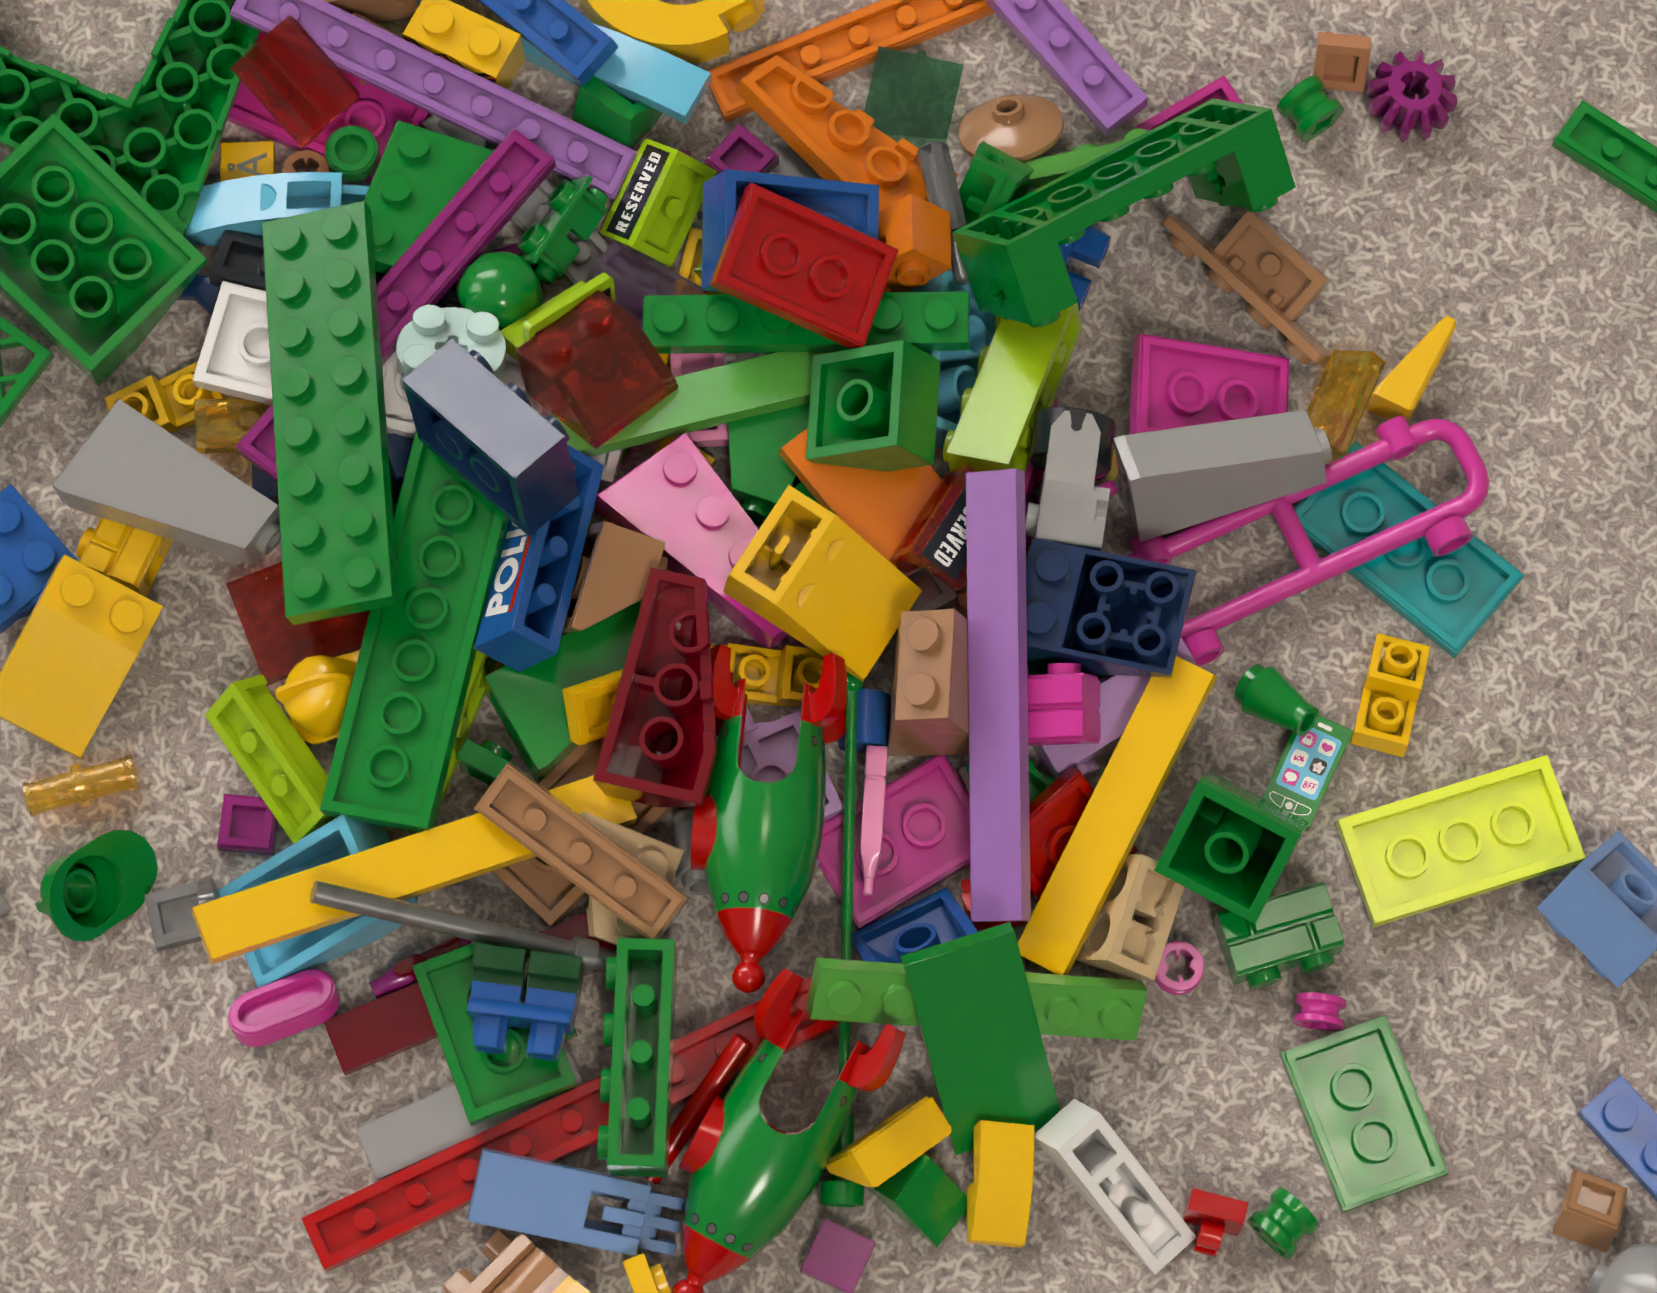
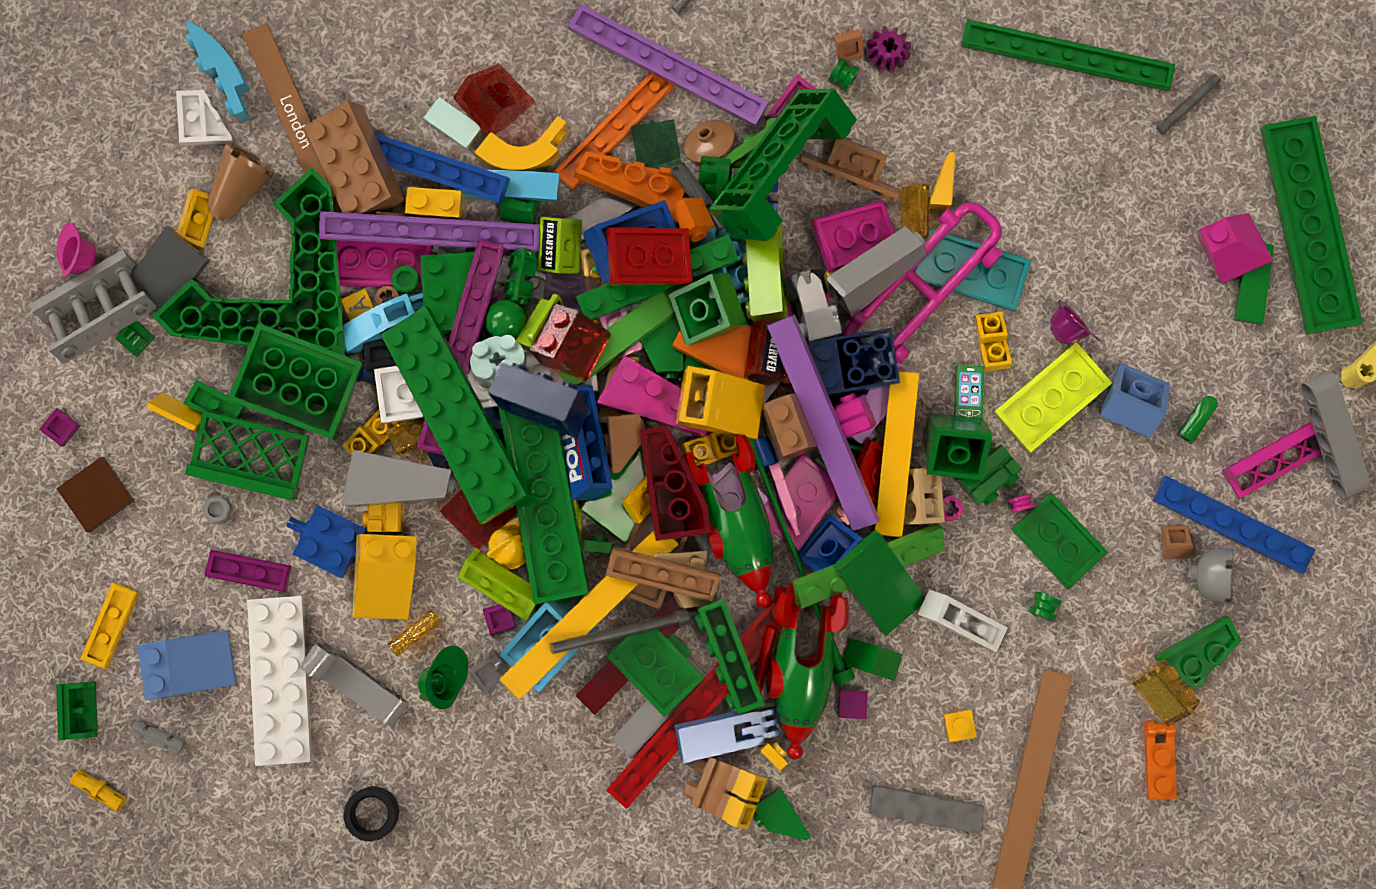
camera: 20 degrees left, 10 degrees up
(284, 1007) = (554, 697): dark pink tile -> none
(295, 81) = (364, 258): clear red panel -> none
(403, 975) = (601, 658): piece -> none
(500, 992) = (654, 657): blue hips -> none
(743, 153) = (590, 208): magenta tile -> none
(892, 1144) = (857, 646): yellow slope -> none
(1002, 1184) = (914, 643): yellow slope -> none
(1214, 1216) = (1013, 618): red tile -> none
(1273, 699) = (941, 366): green cone -> none
(1544, 717) = (1068, 326): none -> magenta piece

